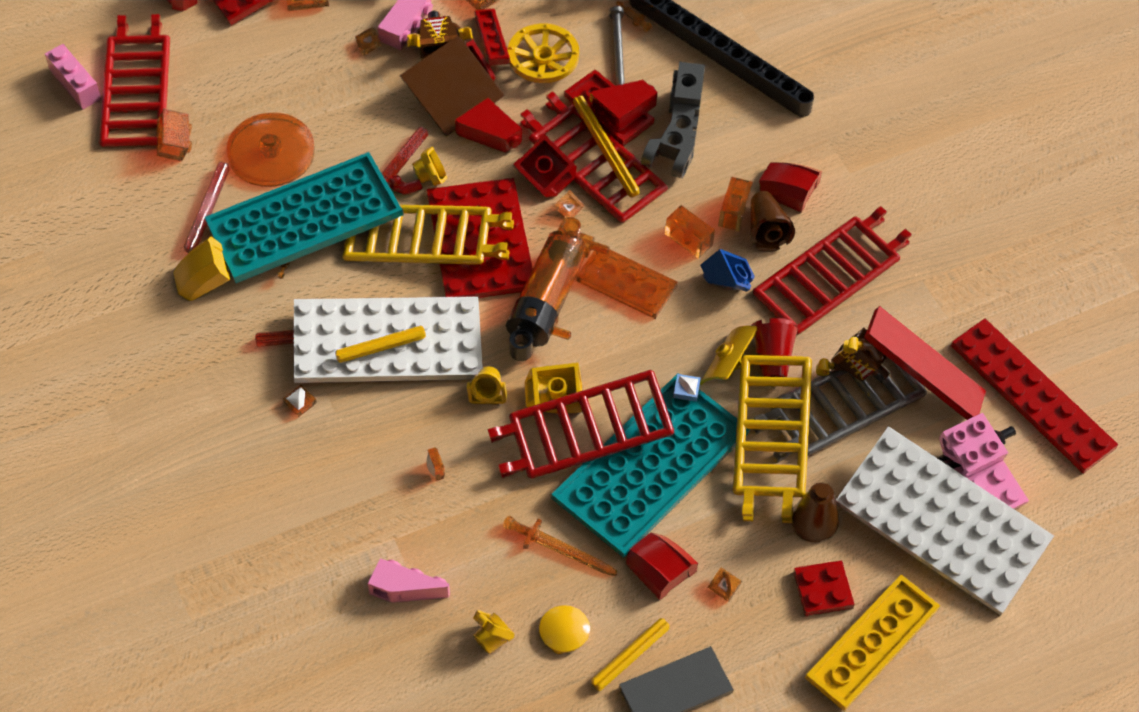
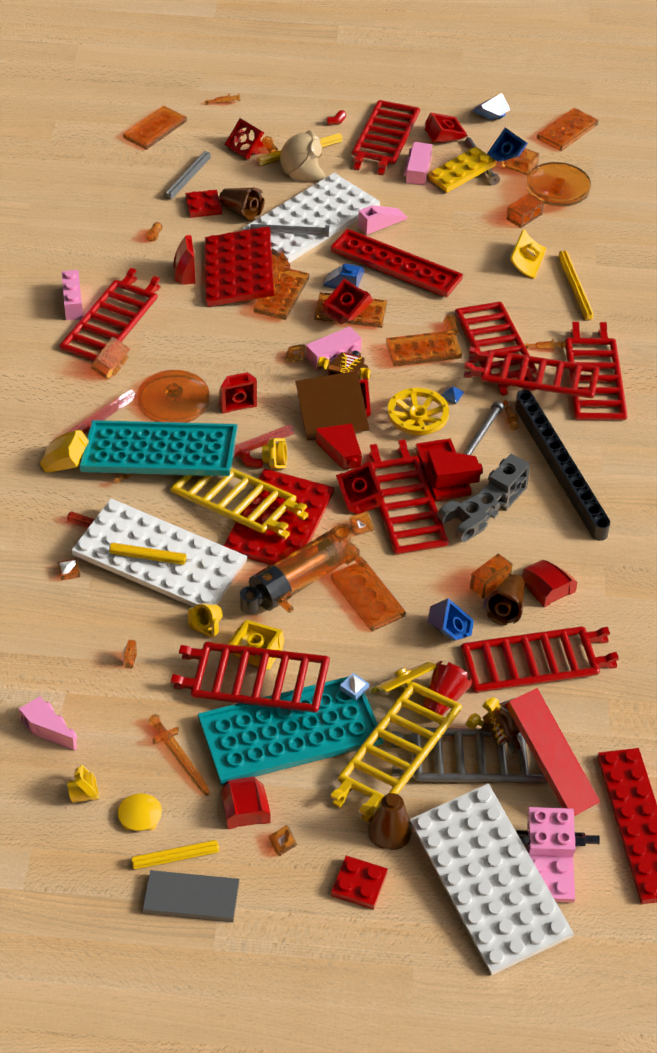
camera: 30 degrees right, 10 degrees down
(344, 115) = (238, 392): none -> red slope
(491, 37) = (387, 385): red tile -> none
(560, 17) = (452, 394): none -> blue slope
(606, 147) = (418, 490): yellow axle -> none
(689, 231) = (440, 579): clear orange brick -> none
(872, 642) = (368, 940): yellow plate -> none

